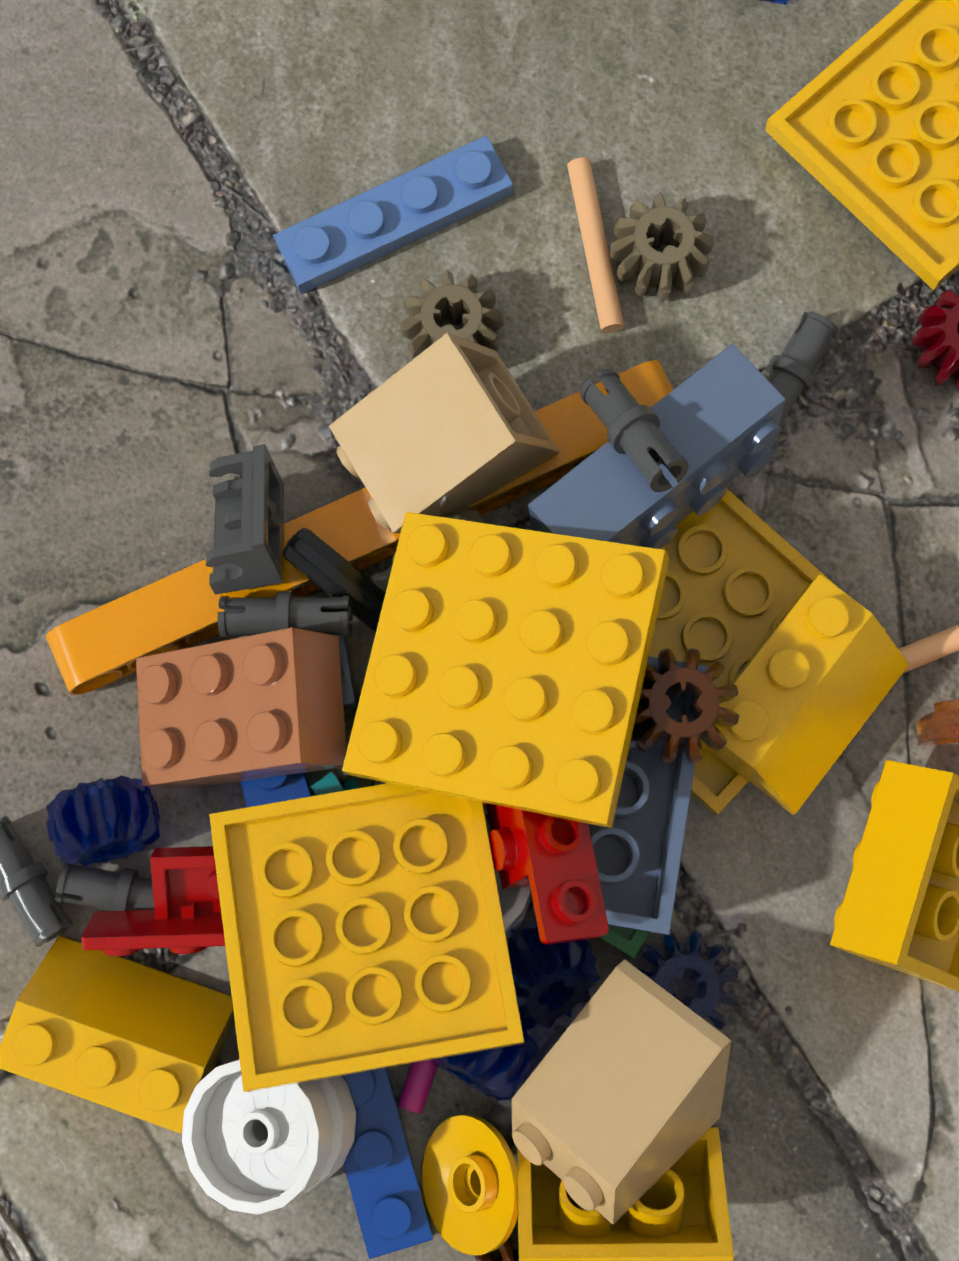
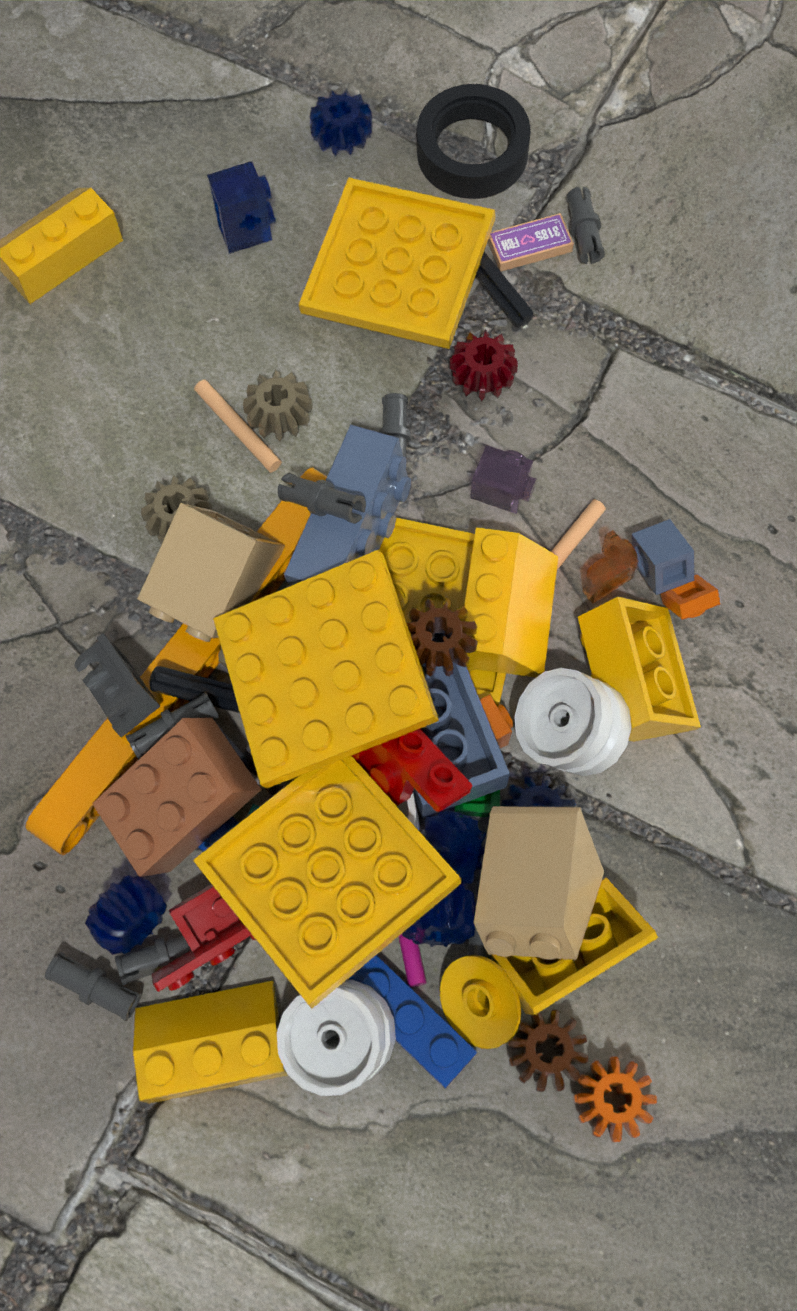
camera: 30 degrees left, 10 degrees down
(393, 214) = (104, 471): medium blue plate -> none
(701, 836) = (499, 720): none -> orange plate
(794, 903) = (572, 722): none -> white wheel
(900, 514) = (503, 479): none -> clear purple brick

